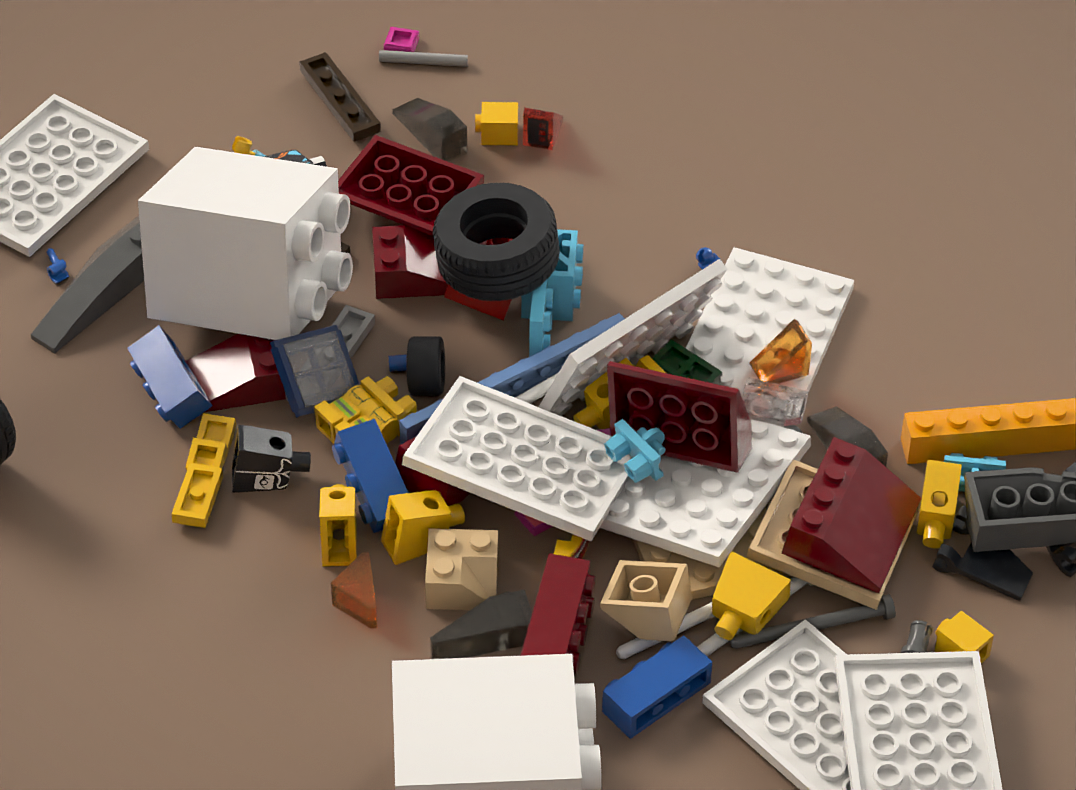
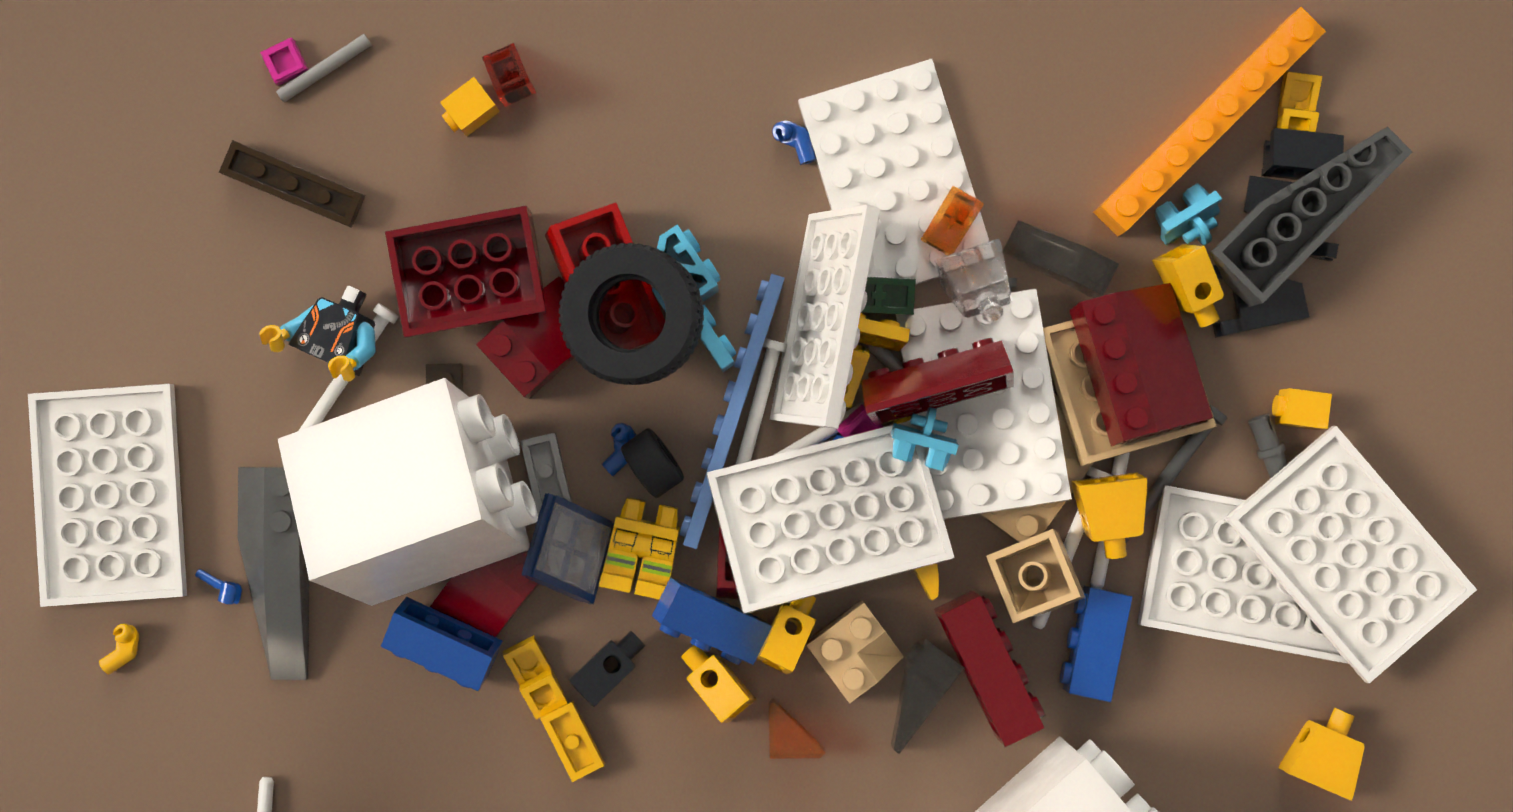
camera: 45 degrees left, 40 degrees up
(434, 128) = (408, 156): clear smoke slope -> none

